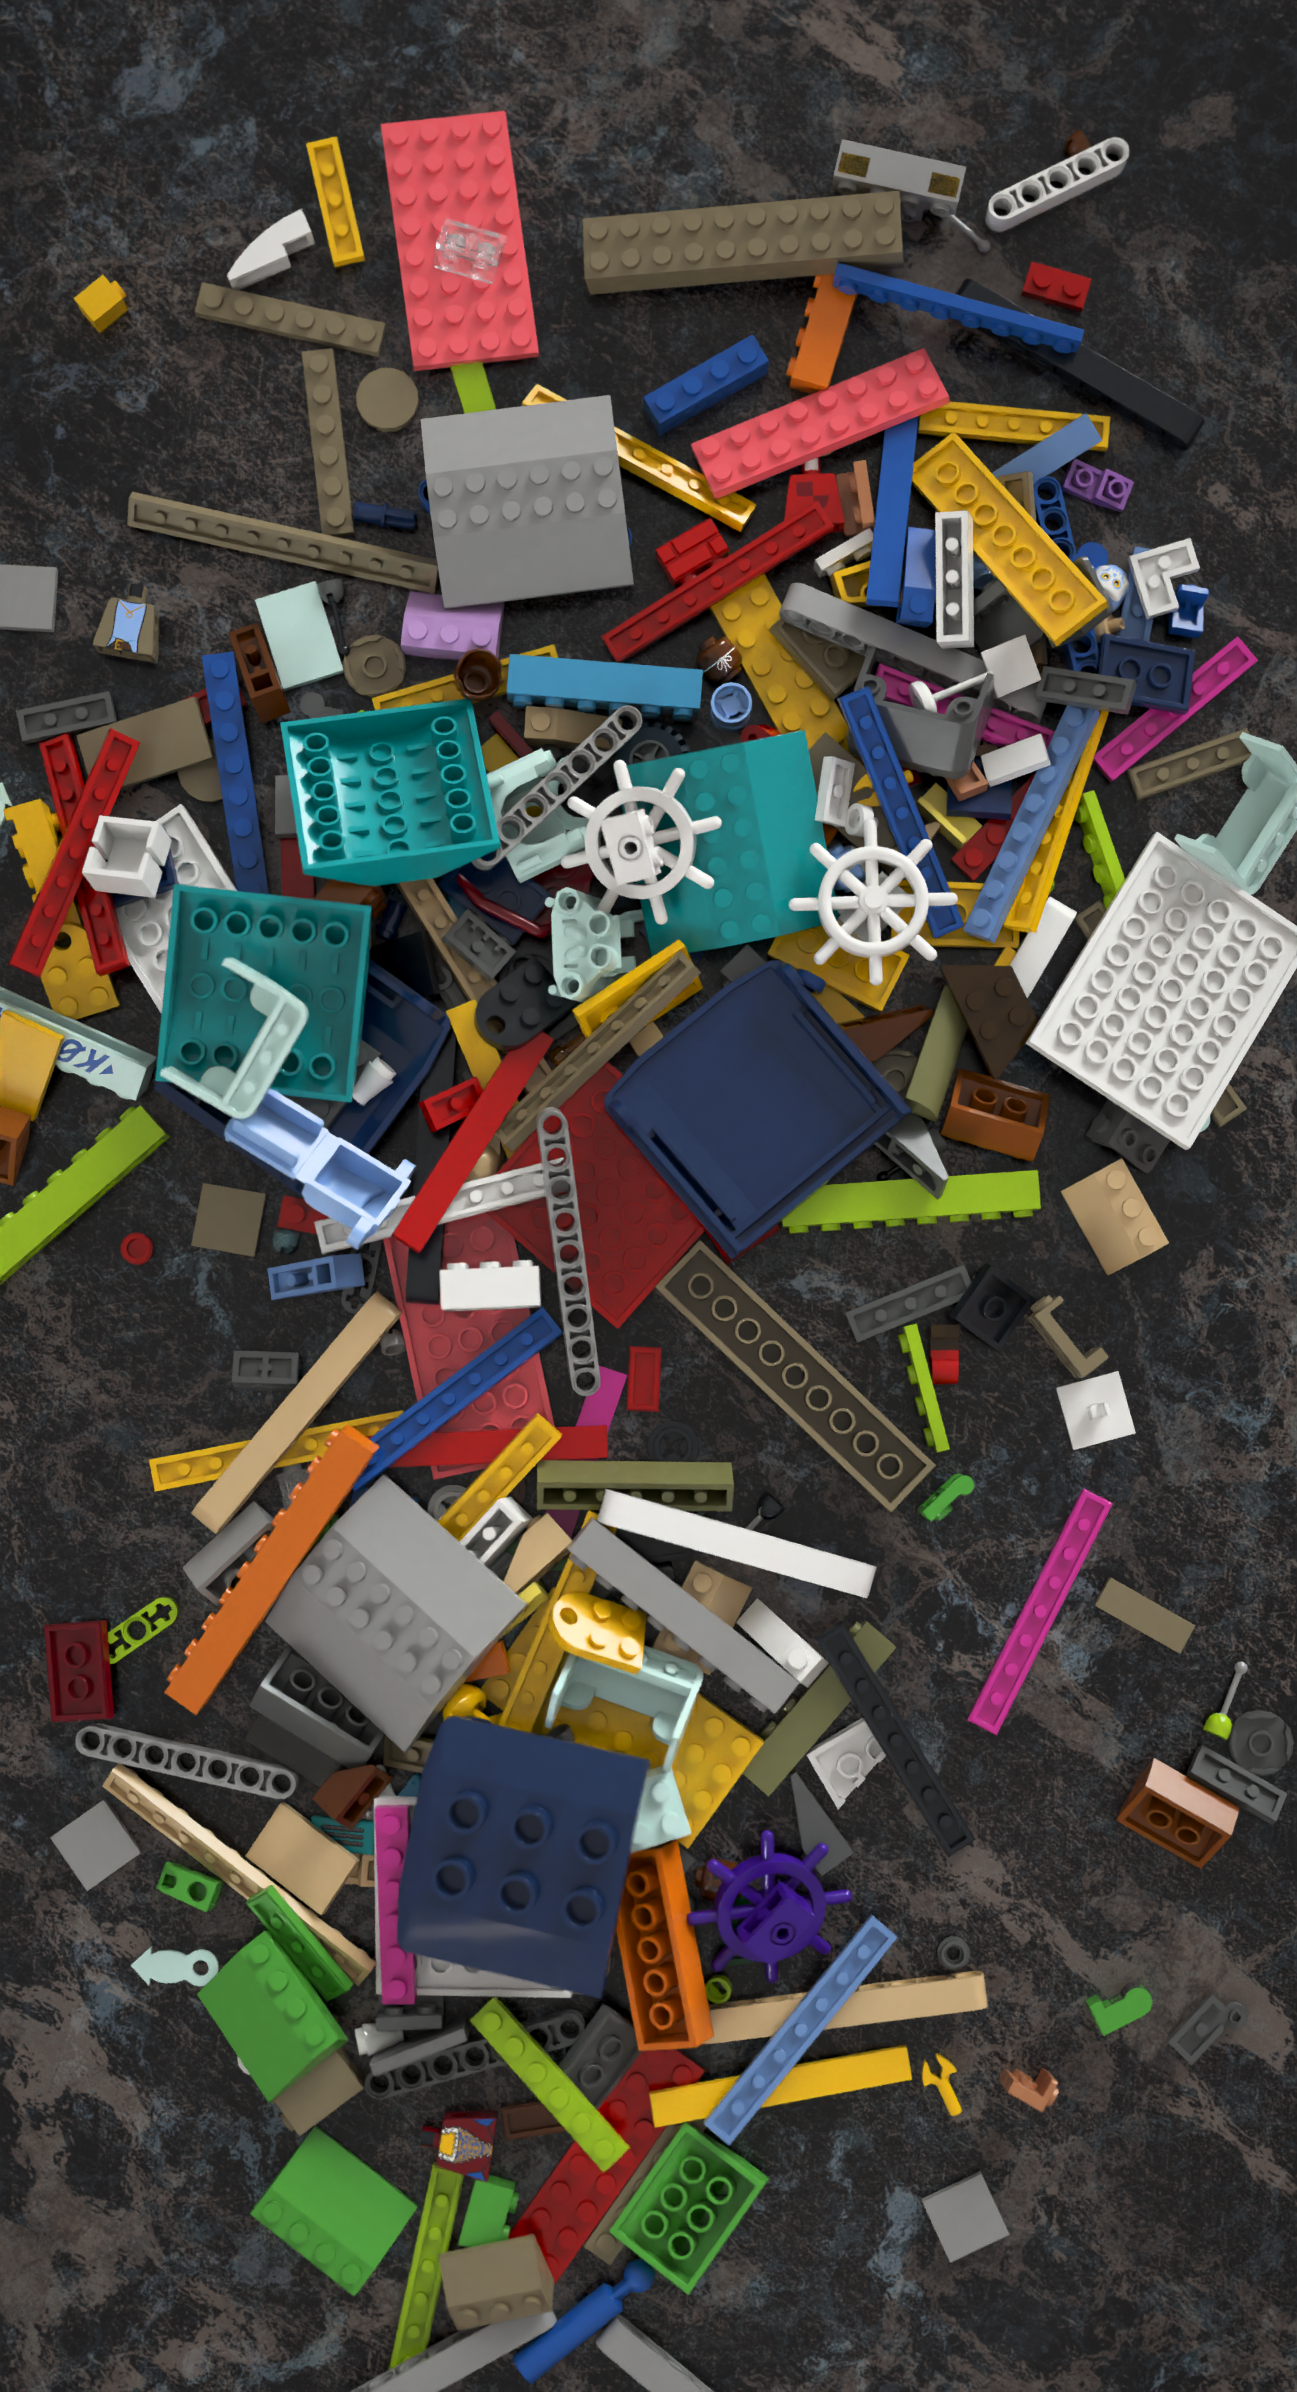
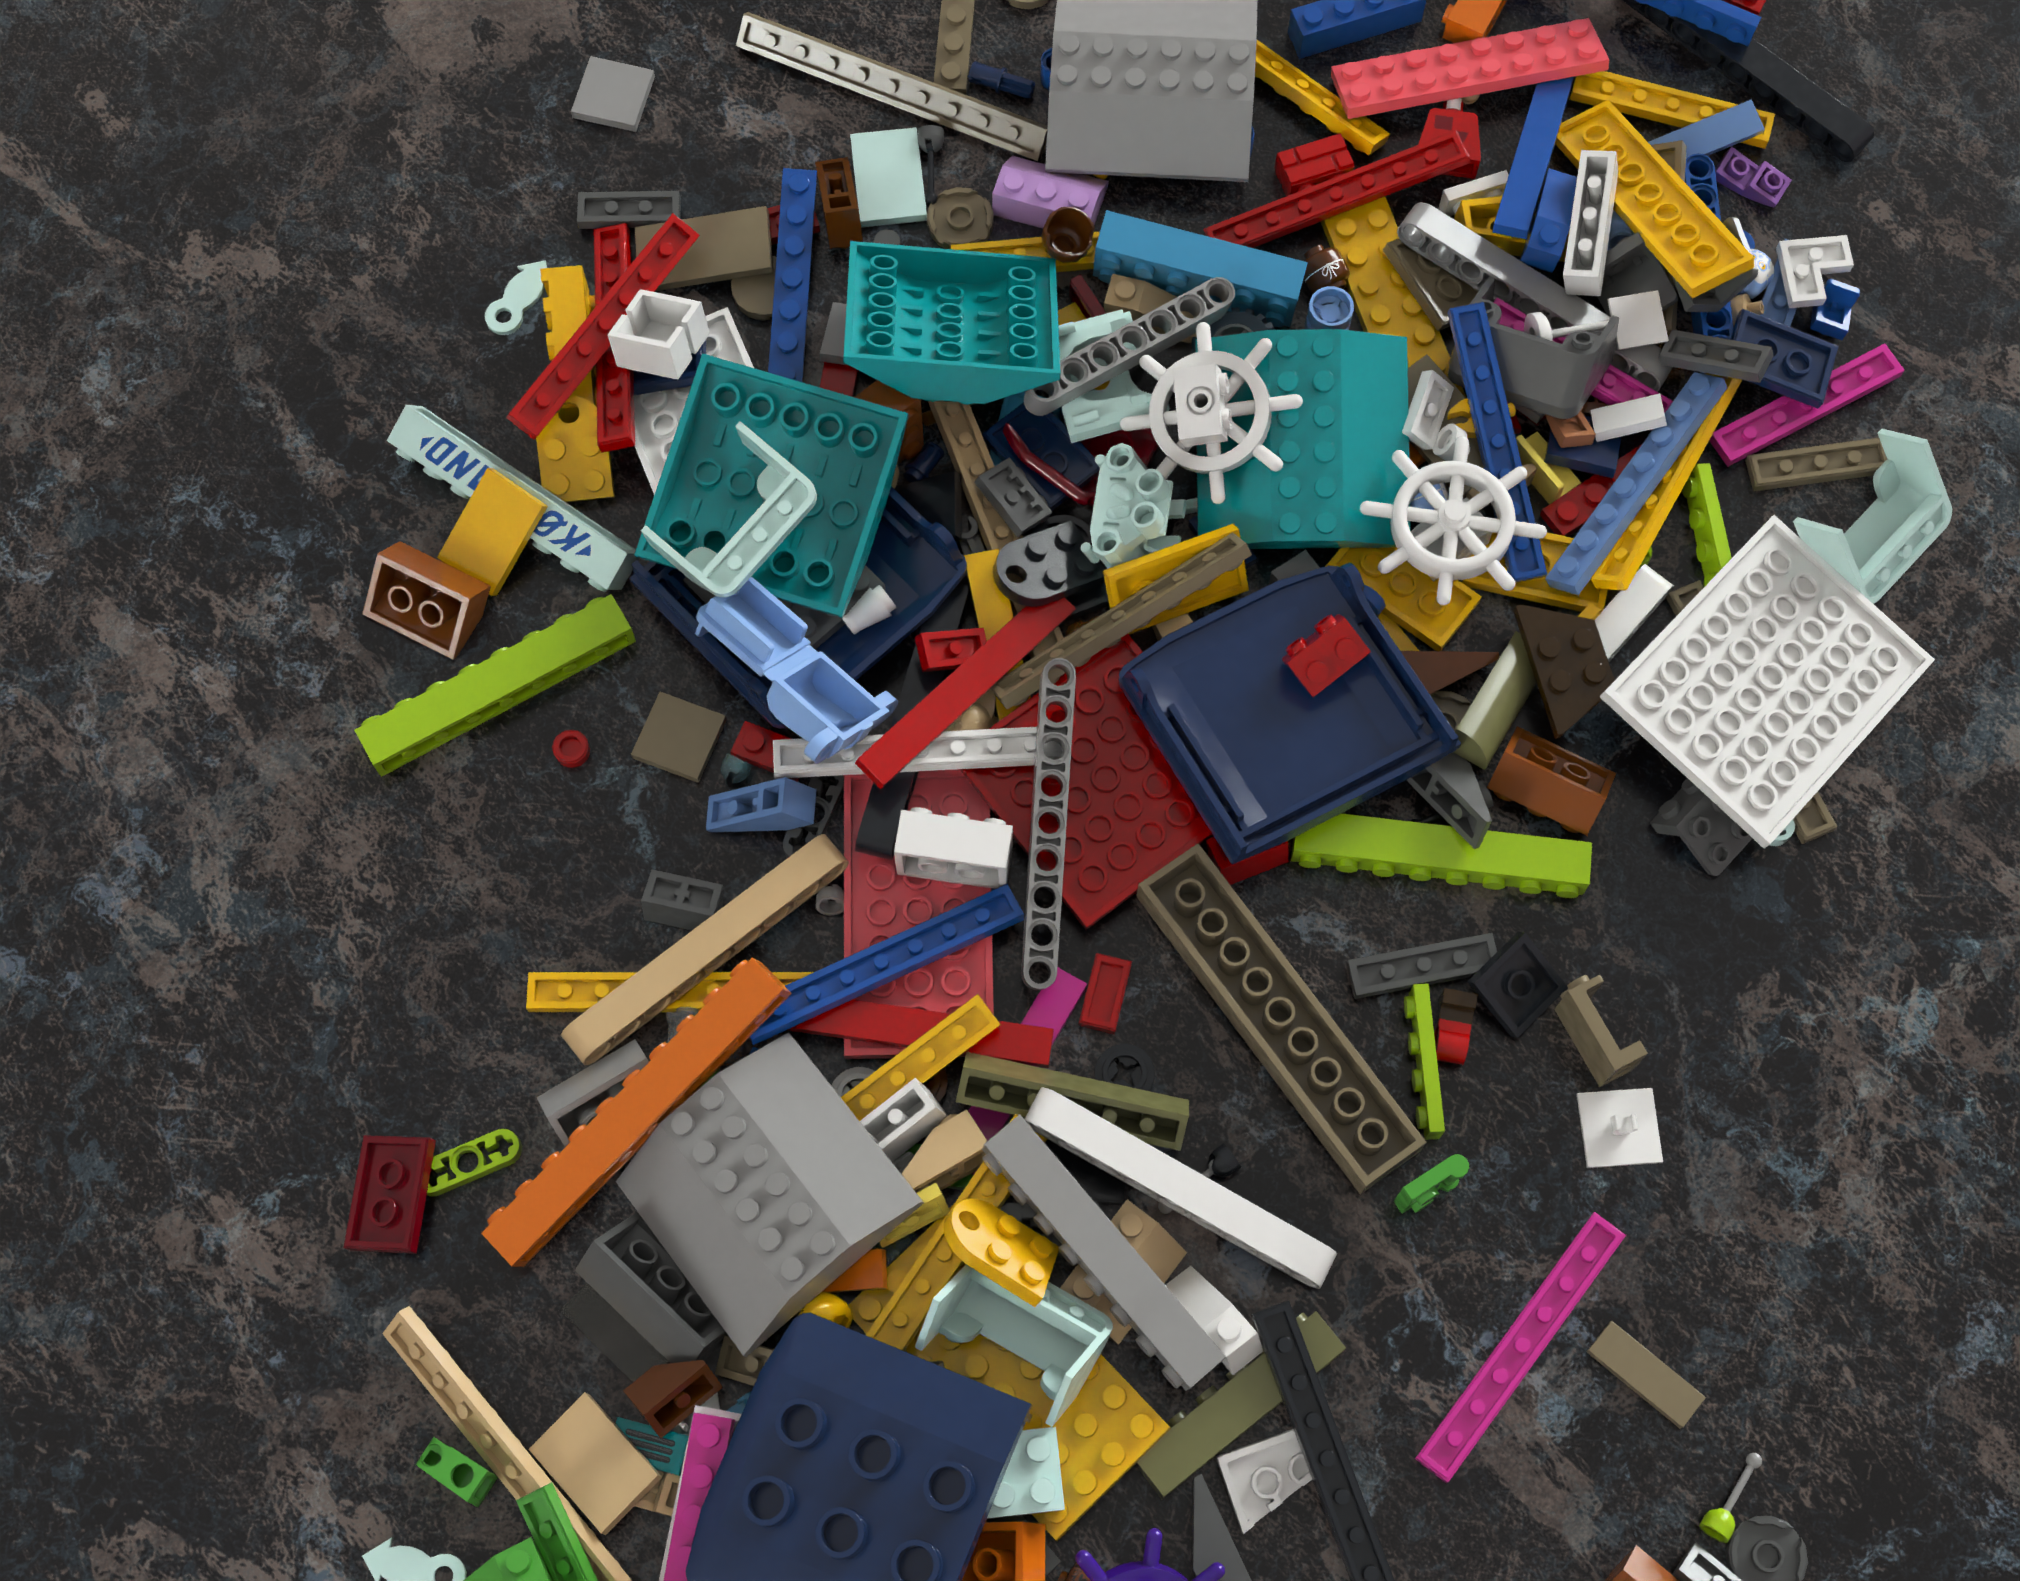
camera: 10 degrees right, 15 degrees down
(96, 1844) = (358, 1402): light grey tile -> none
(129, 627) = (714, 137): torso -> none
(171, 1762) = (472, 1312): light grey beam -> none
(780, 1051) = (1325, 653): none -> red bracket
(856, 499) = (1496, 142): nougat bracket -> none
(1114, 1217) = (1672, 913): tan slope -> none

